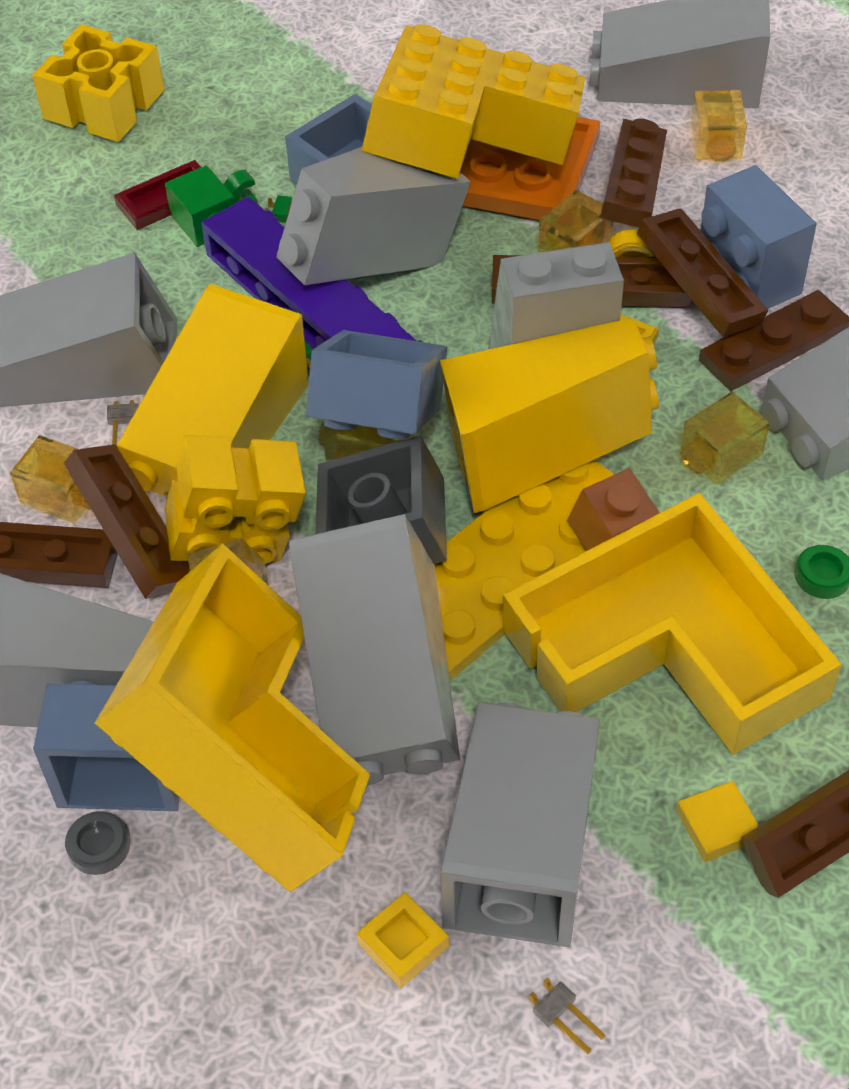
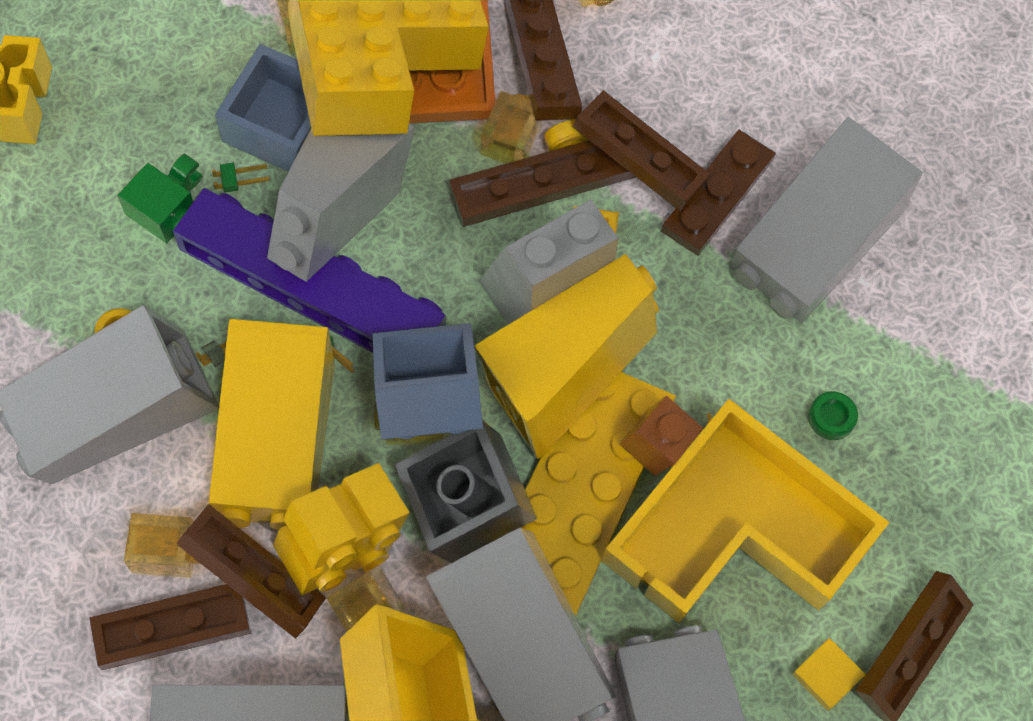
camera: 25 degrees left, 15 degrees up
(120, 414) = (182, 452): clear smoke piece -> none
(149, 200) = (98, 205): dark red tile -> none
(723, 438) = (714, 315): clear yellow brick -> none
(759, 233) = (678, 98): sand blue piece -> none

